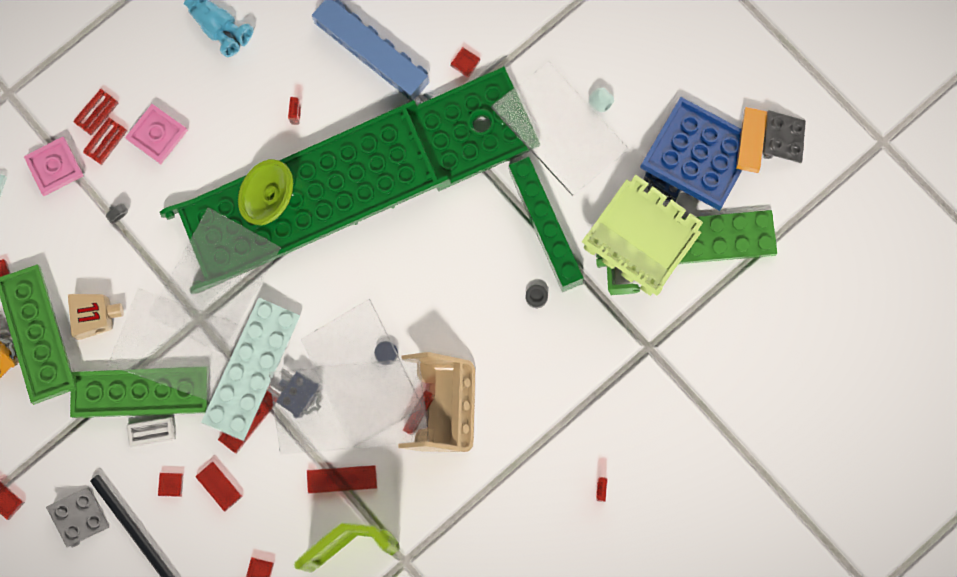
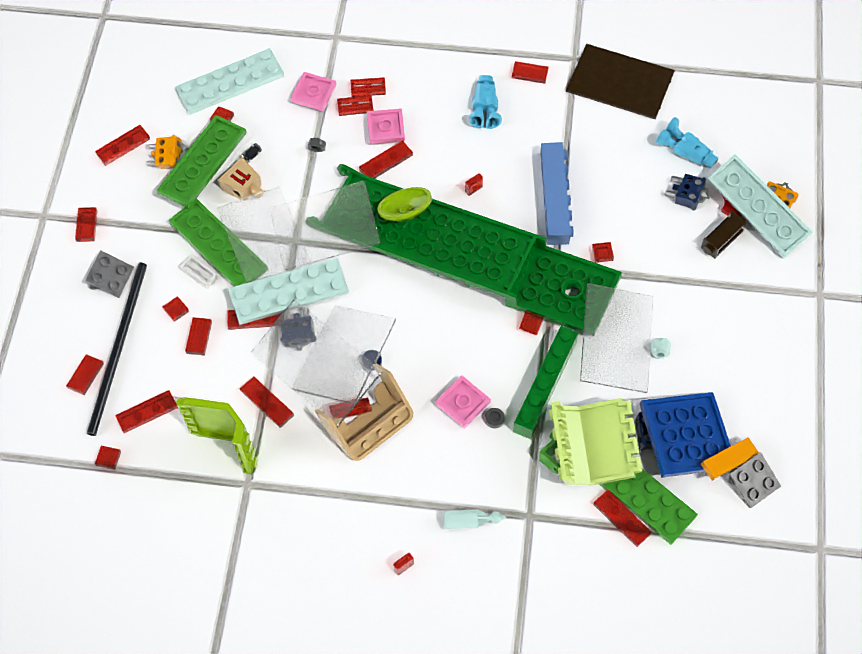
camera: 40 degrees right, 15 degrees down
(66, 280) = (251, 152): none -> black piece
(192, 165) = (386, 160): none -> clear red tile
(478, 185) = (531, 322): none -> clear red tile
(498, 310) = (463, 401): none -> bright pink plate
(610, 399) = (469, 518): none -> light aqua wheel
(719, 273) = (622, 518): none -> clear red tile

